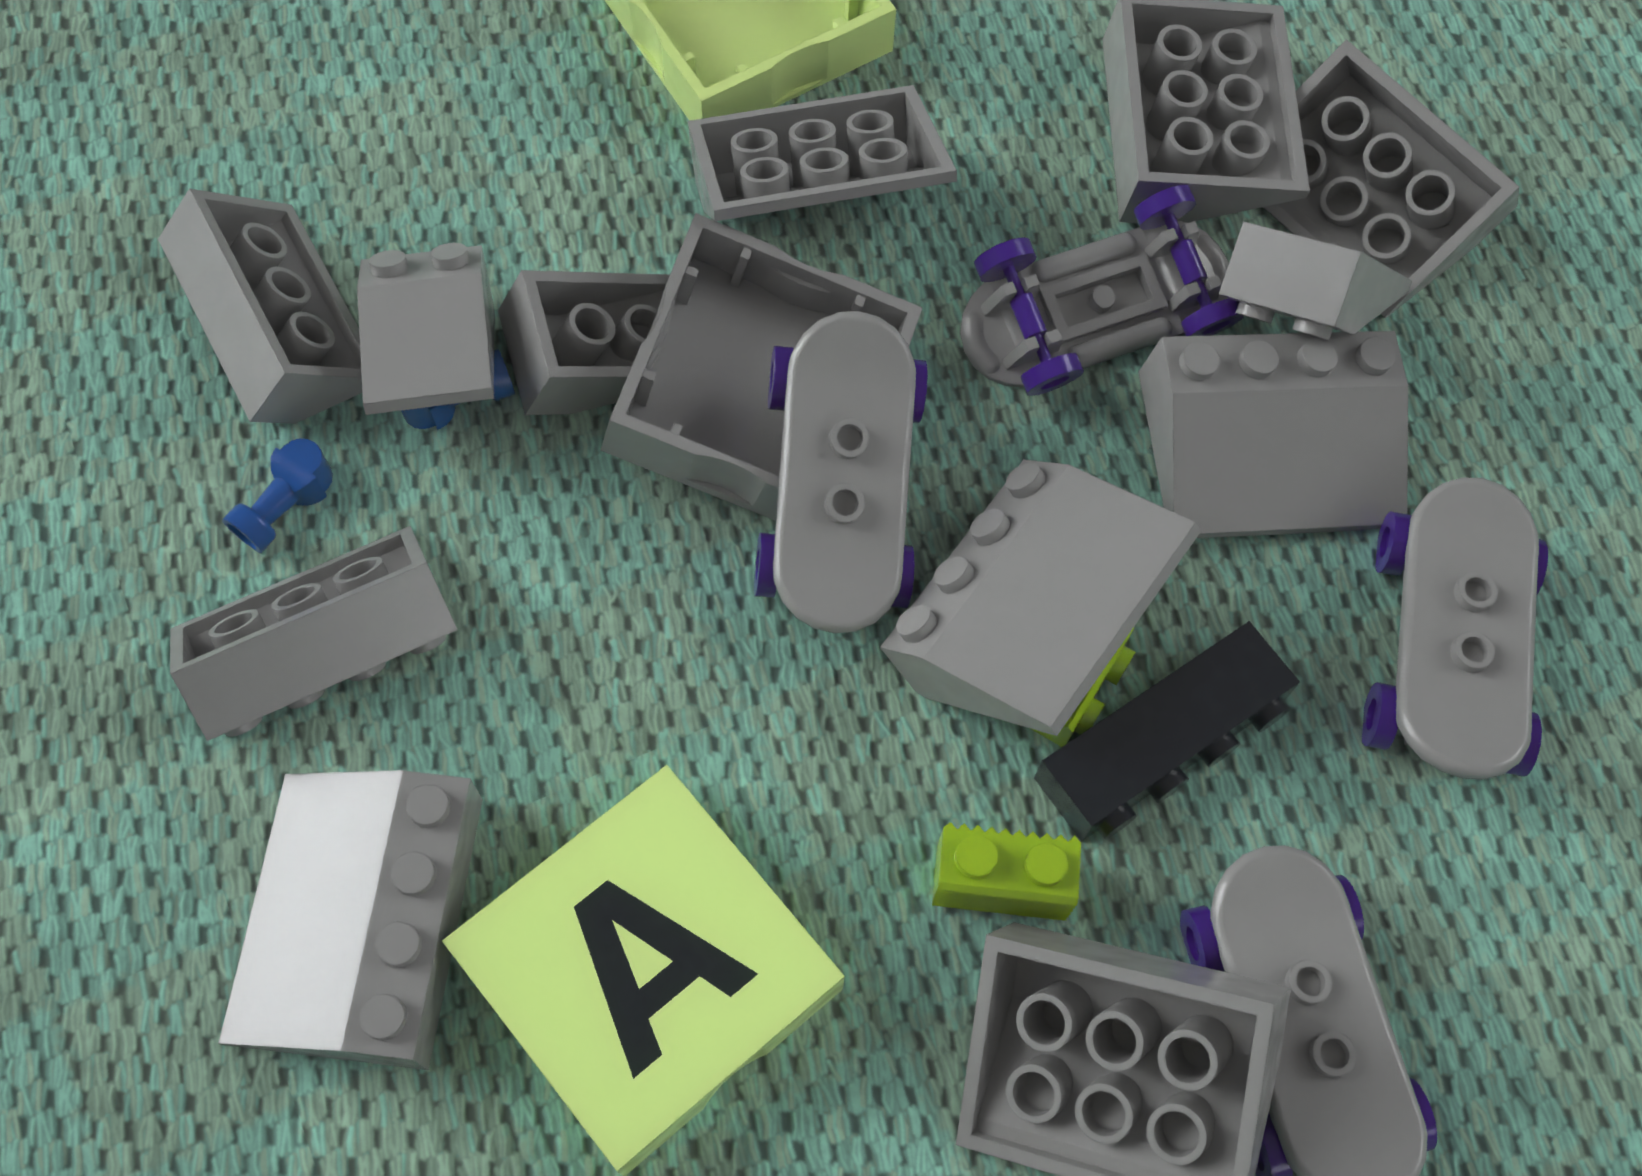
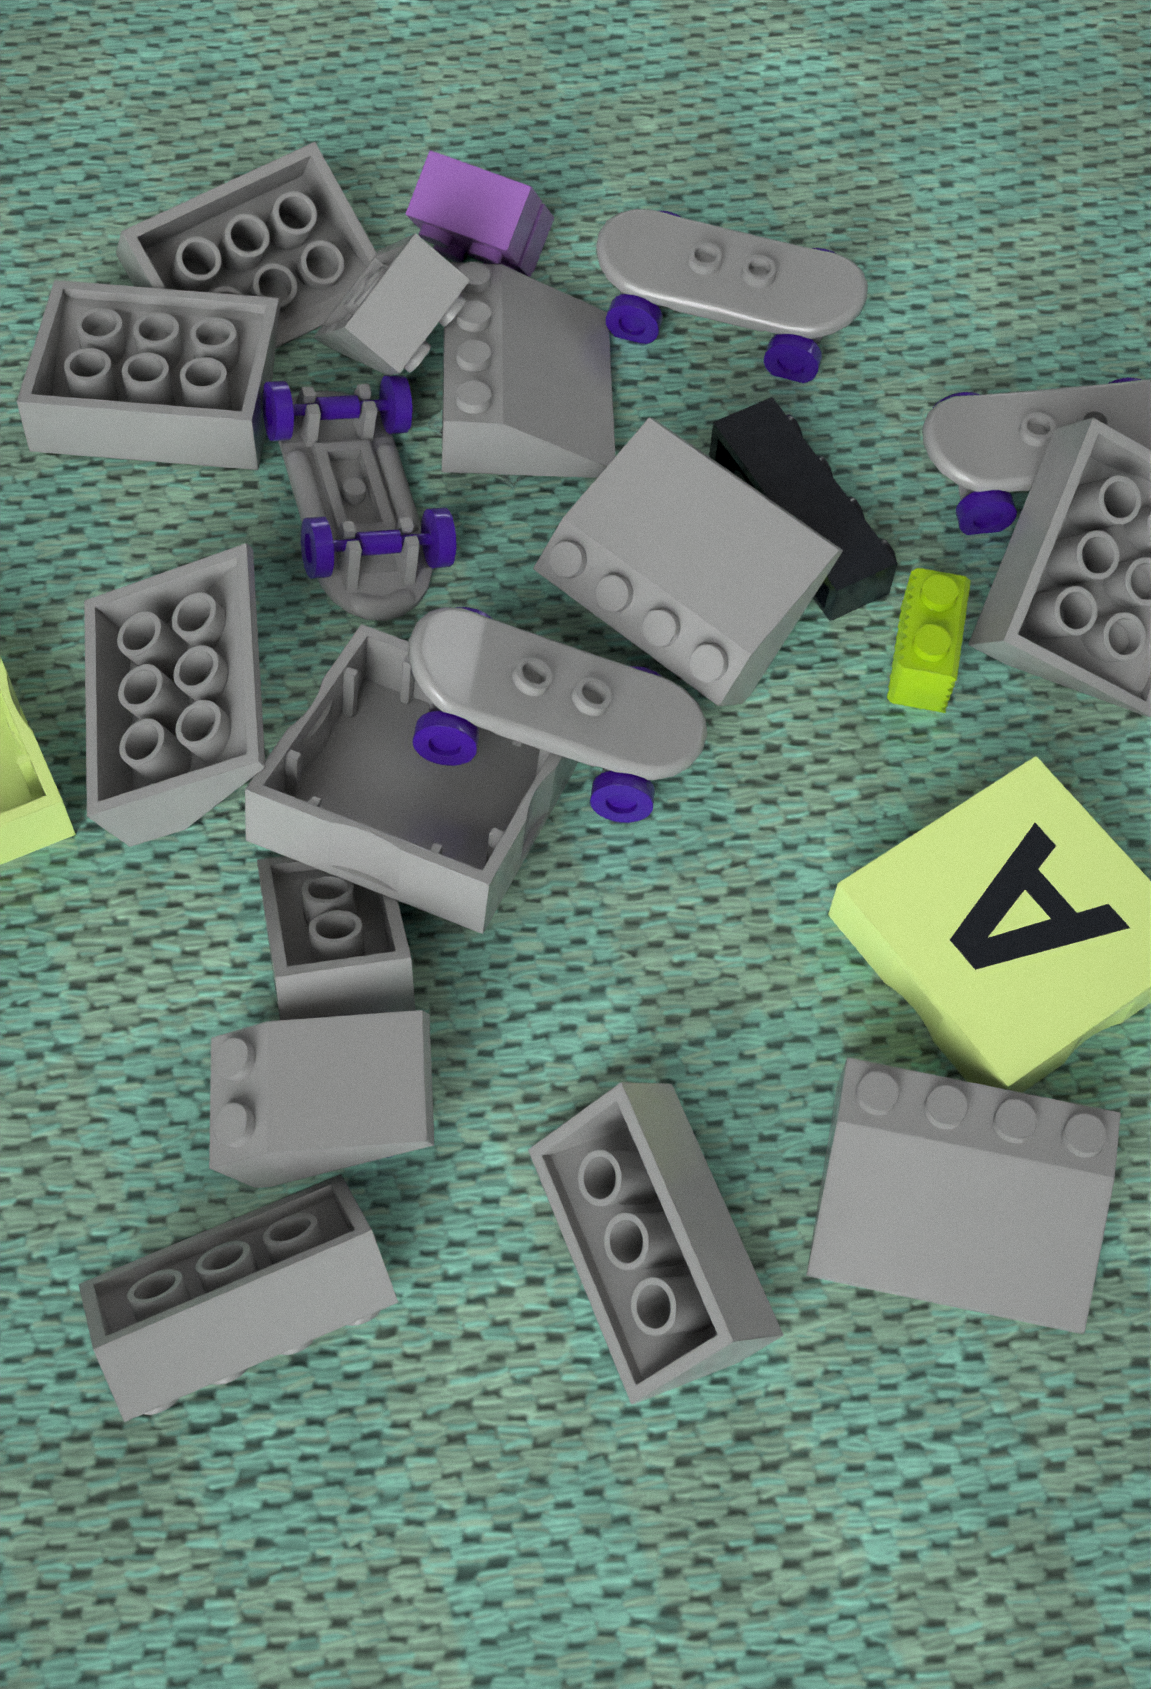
camera: 85 degrees left, 5 degrees down
(299, 479) = (465, 1262): blue leg -> none
(1474, 362) = (479, 214): none -> medium lavender piece

